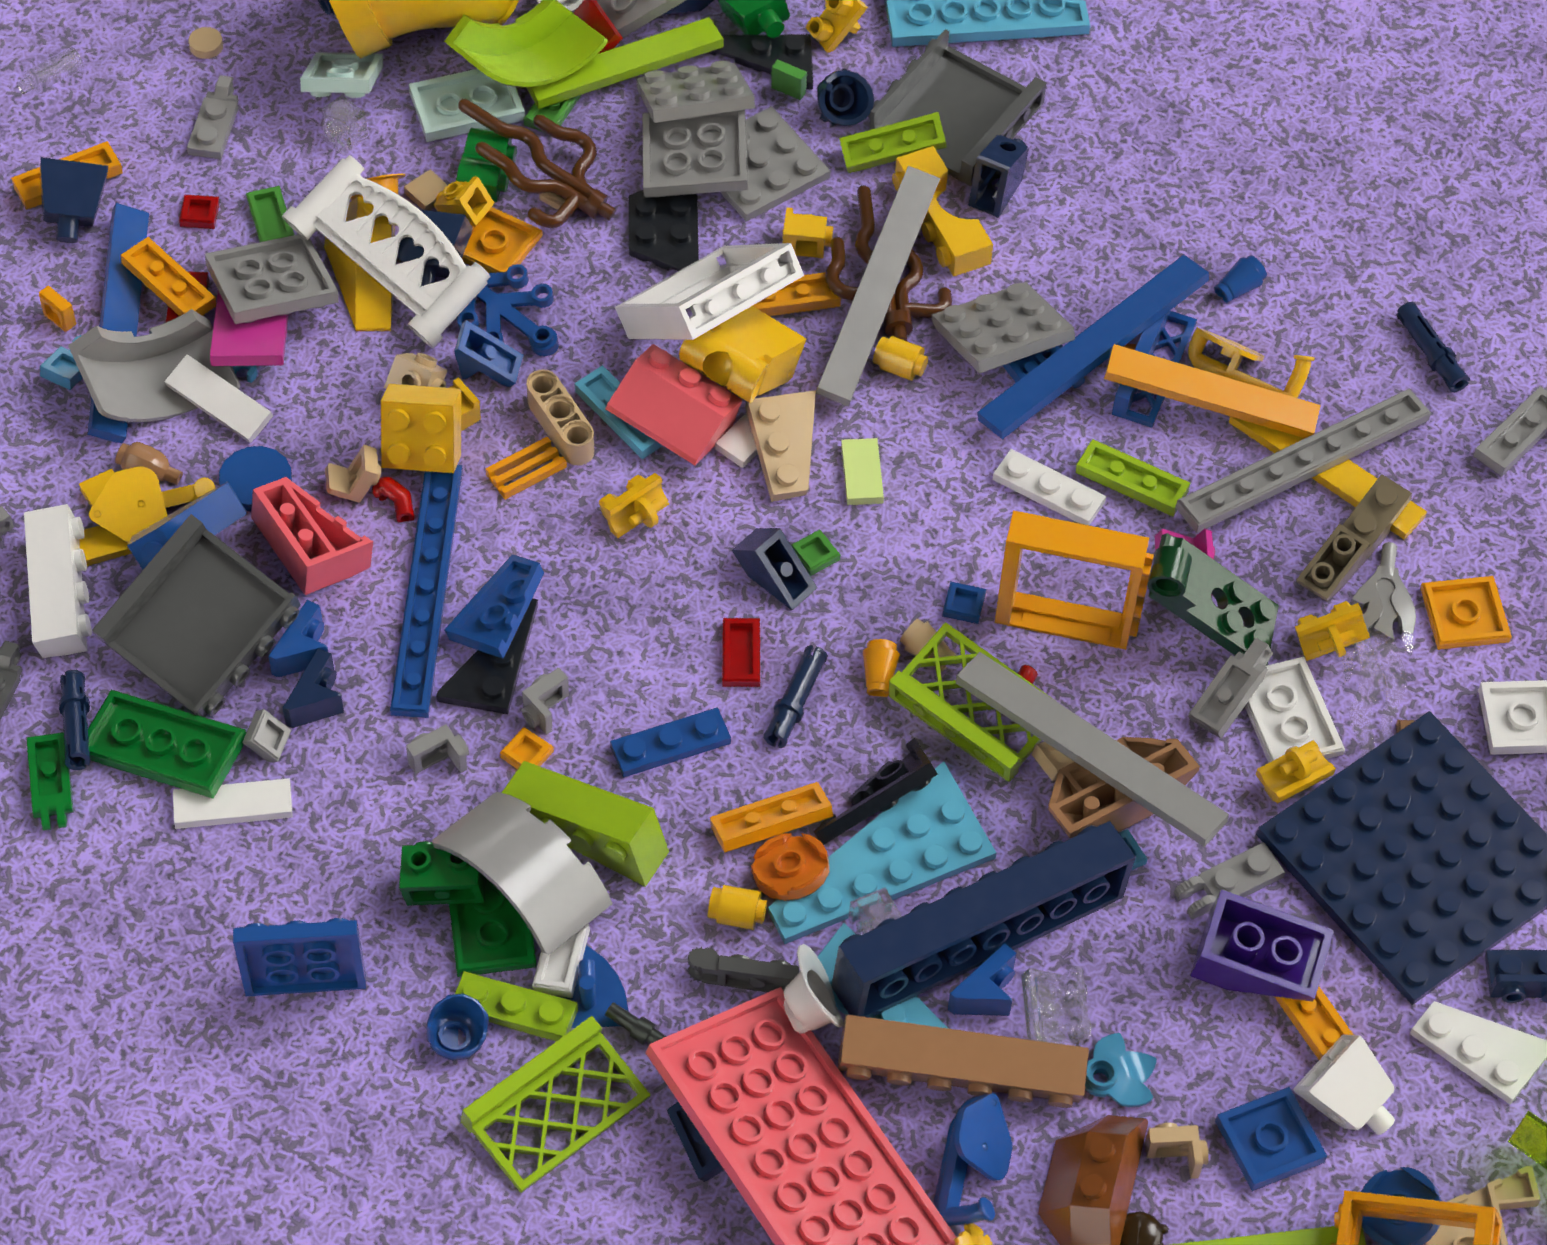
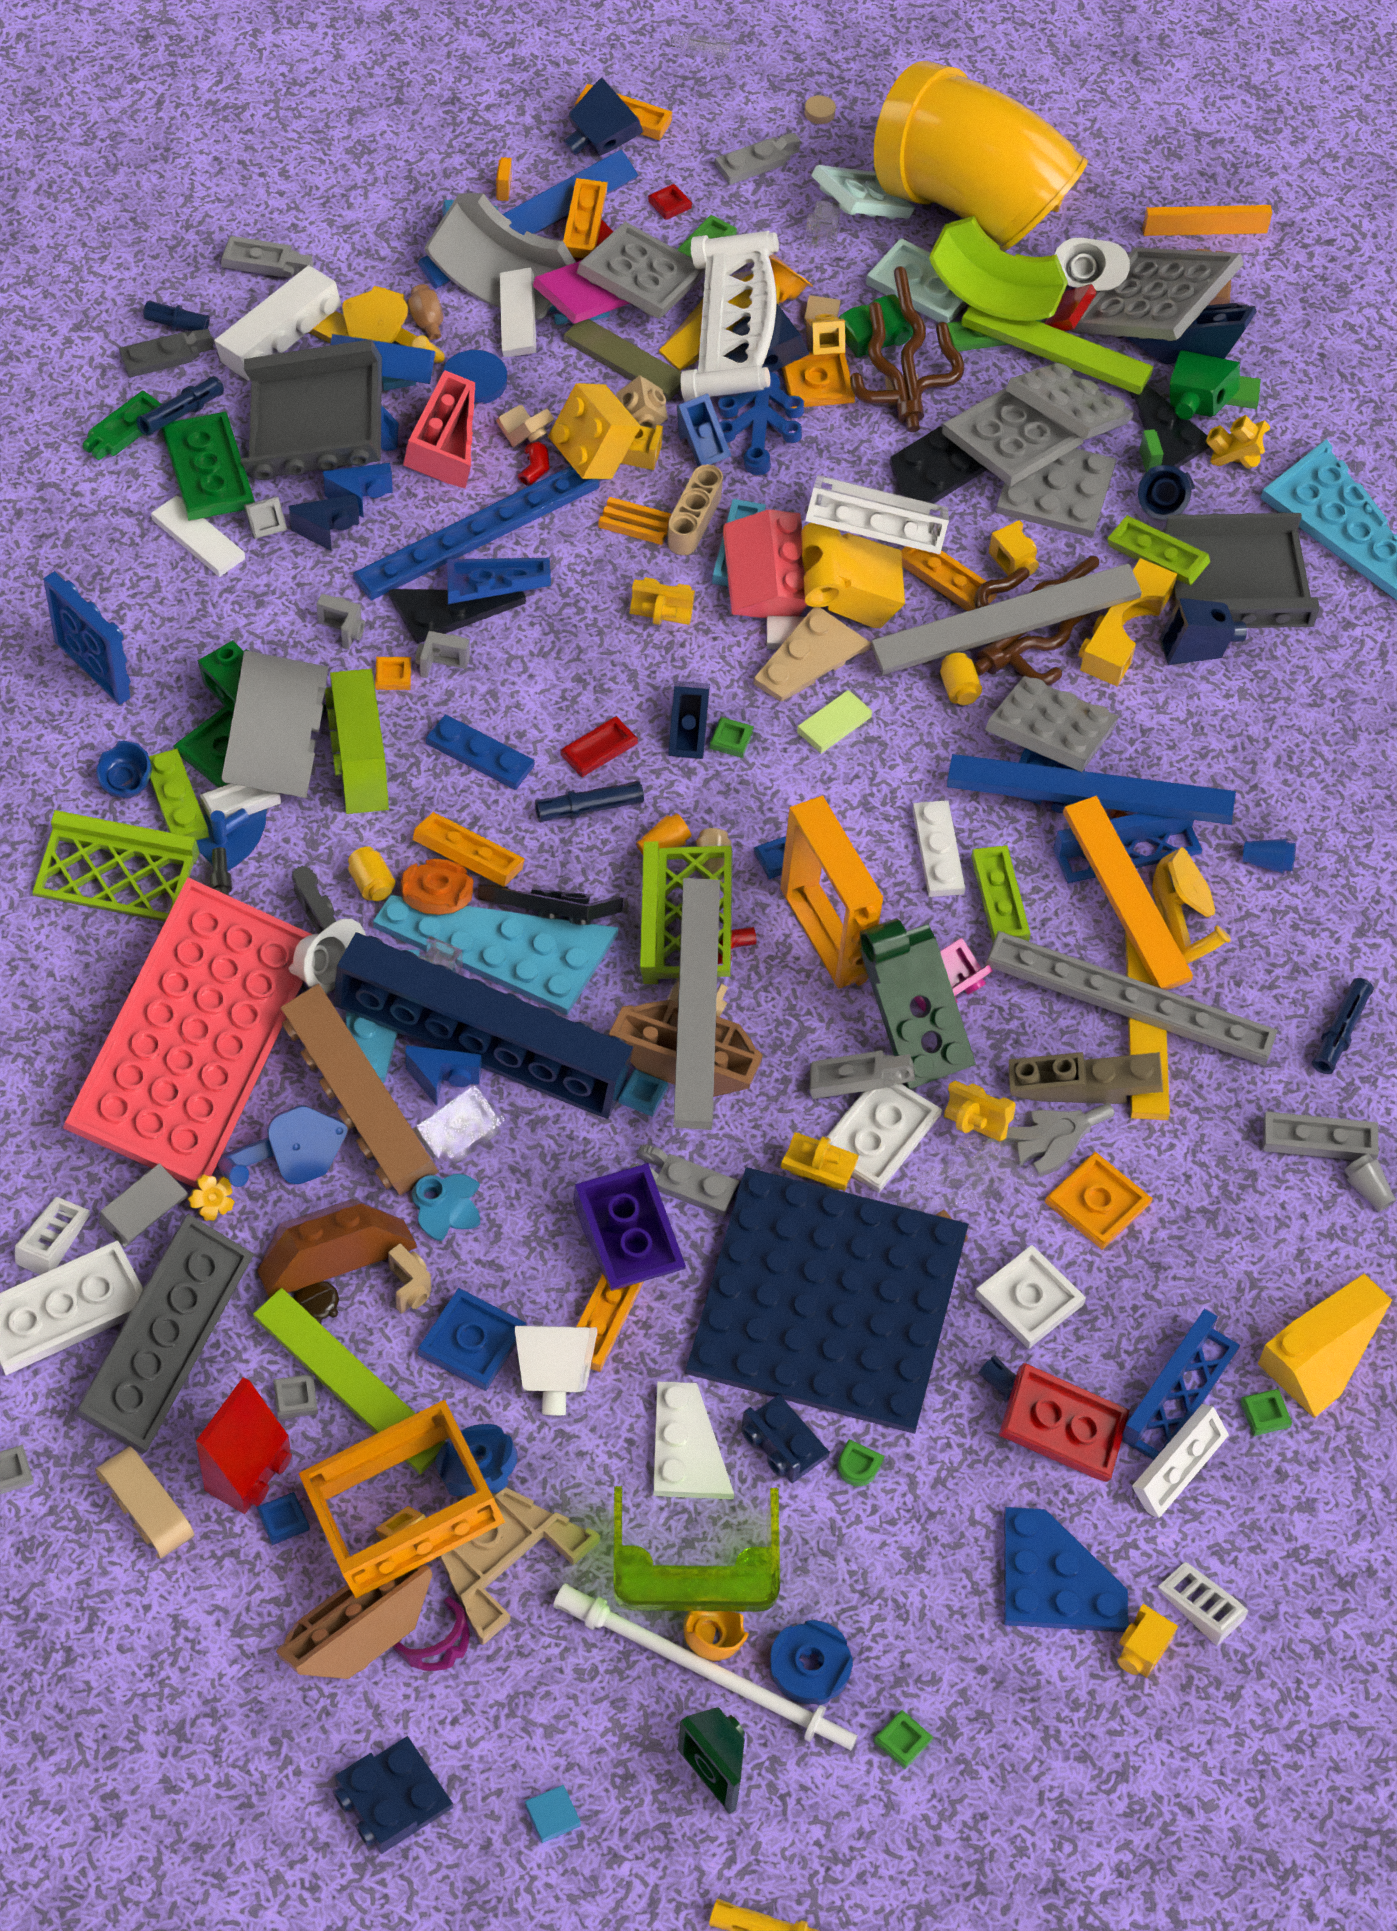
camera: 50 degrees right, 0 degrees up
(342, 358) = (623, 356): none -> olive tile

